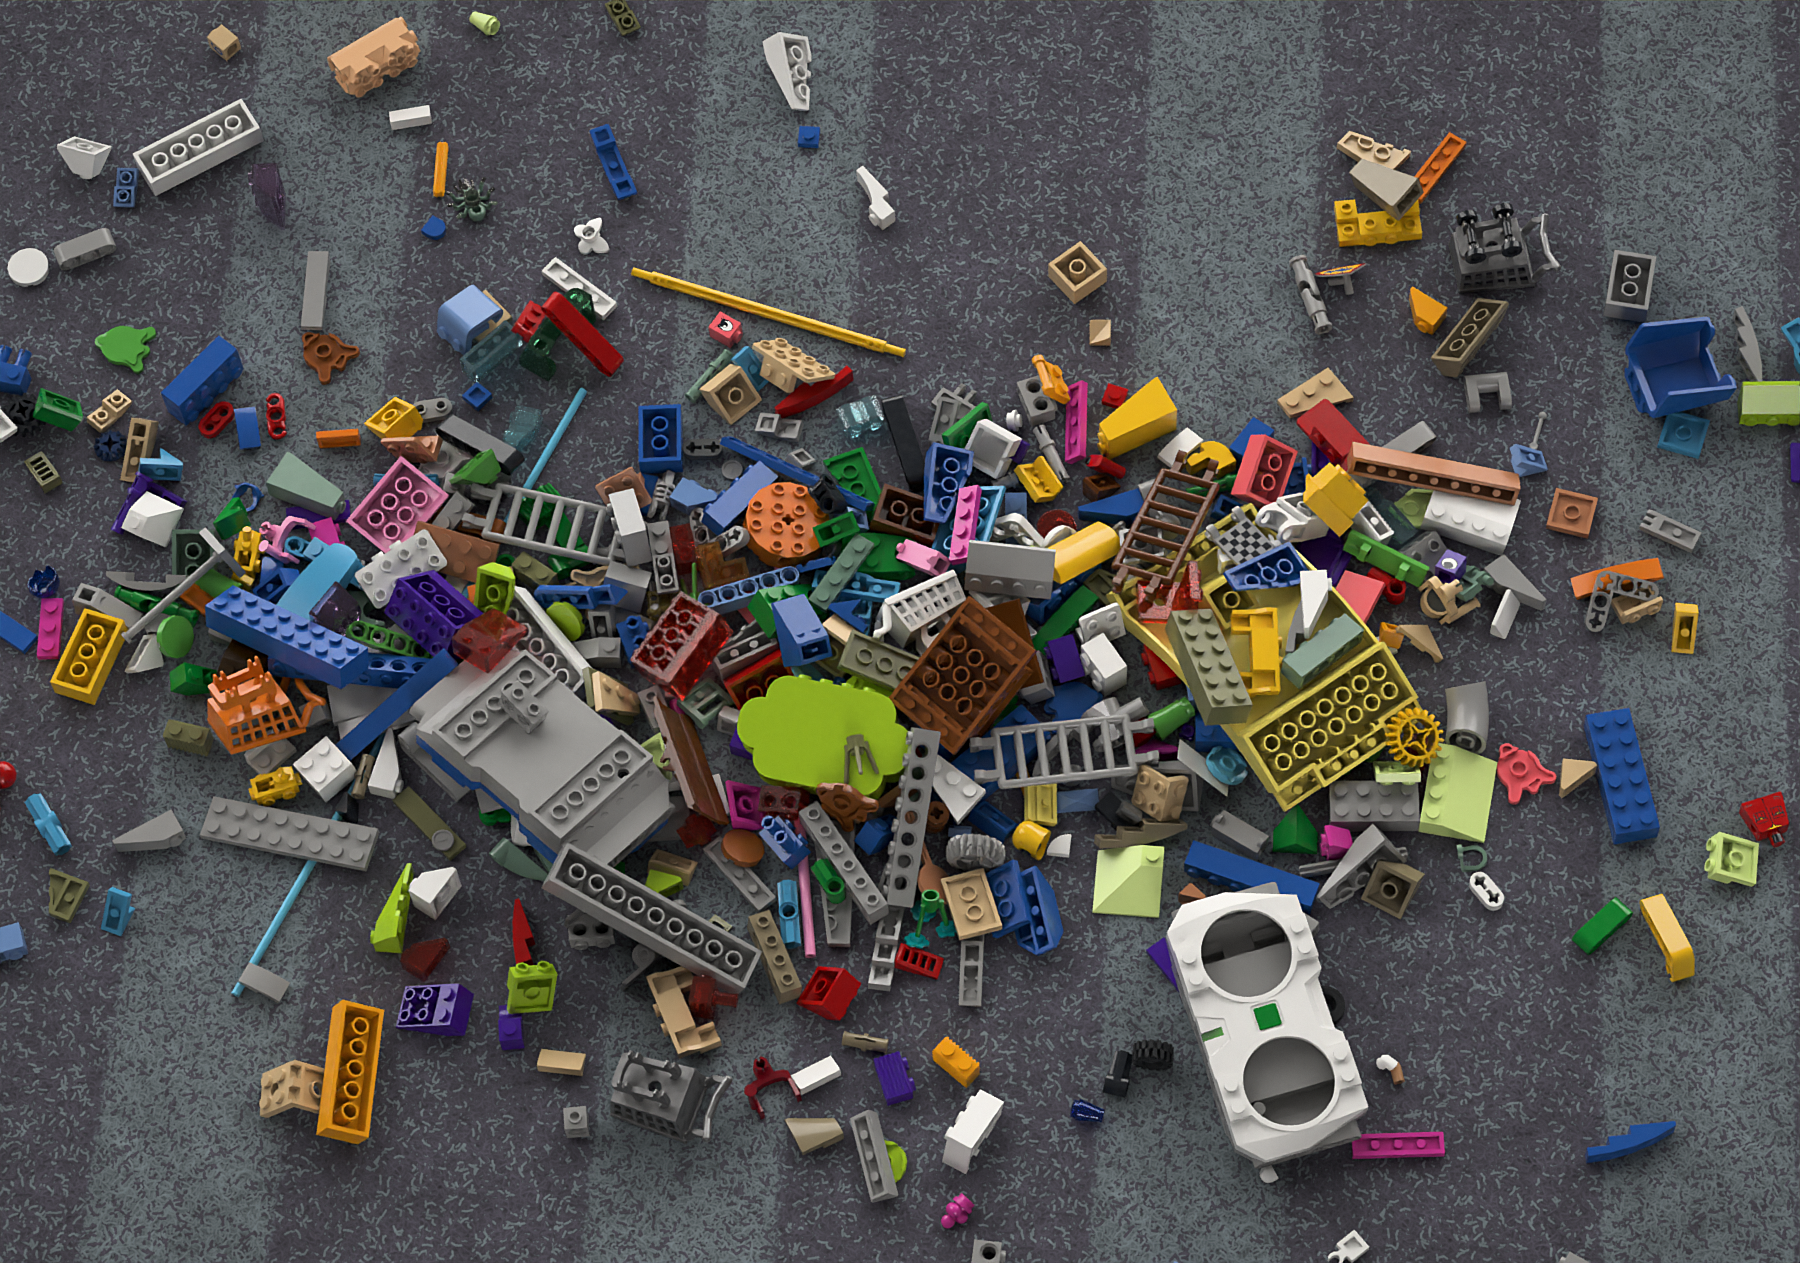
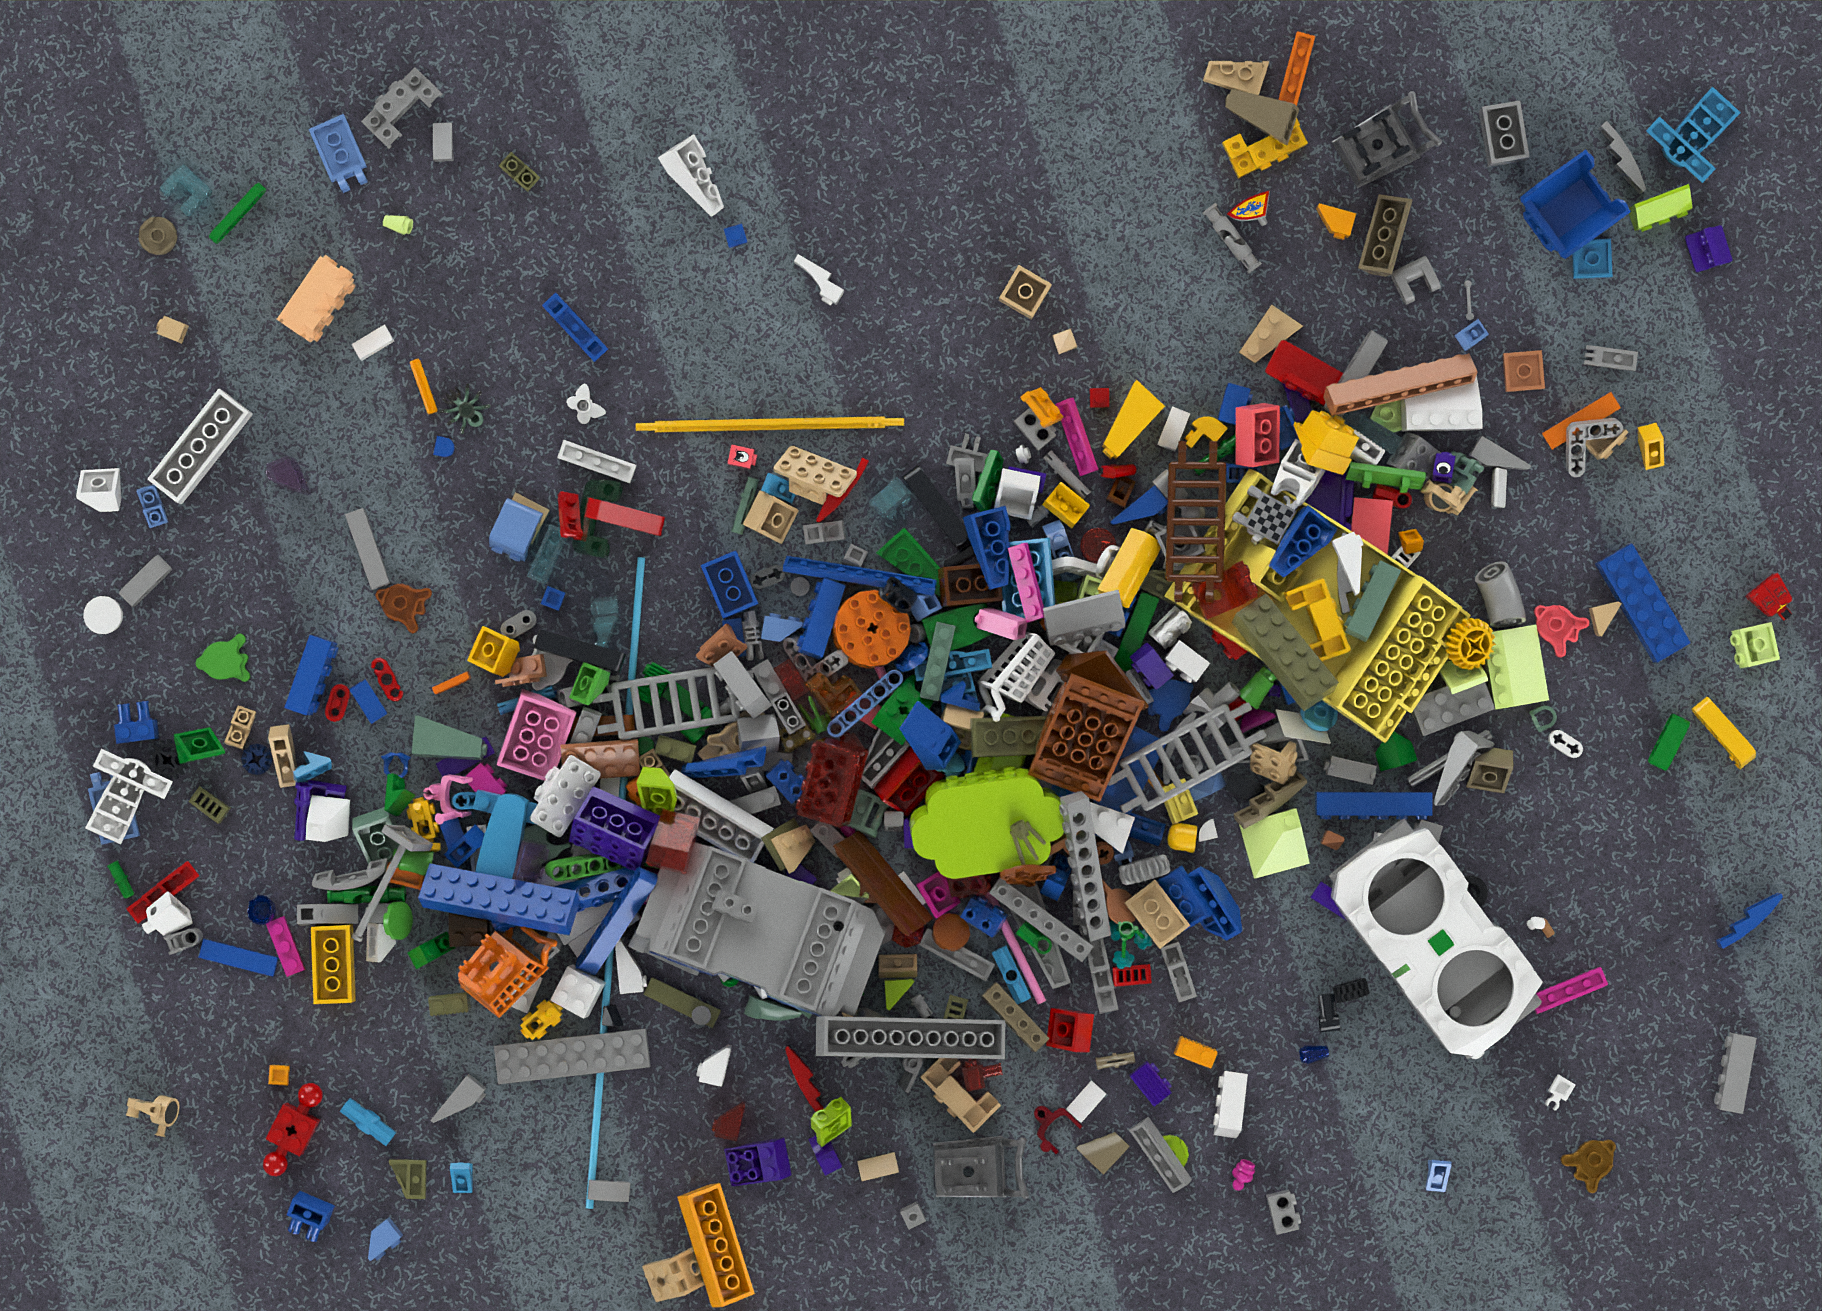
camera: 25 degrees left, 25 degrees up
(360, 788) = (612, 998): dark tan pin -> none
(392, 921) = (691, 1105): lime wedge -> none
(567, 619) = (721, 785): lime tile -> none
(836, 529) = (918, 624): green slope -> none
(1129, 813) = (1256, 785): dark grey slope -> none
(1335, 842) = (1433, 751): dark pink slope -> none
(1422, 639) = (1439, 536): tan tile -> none

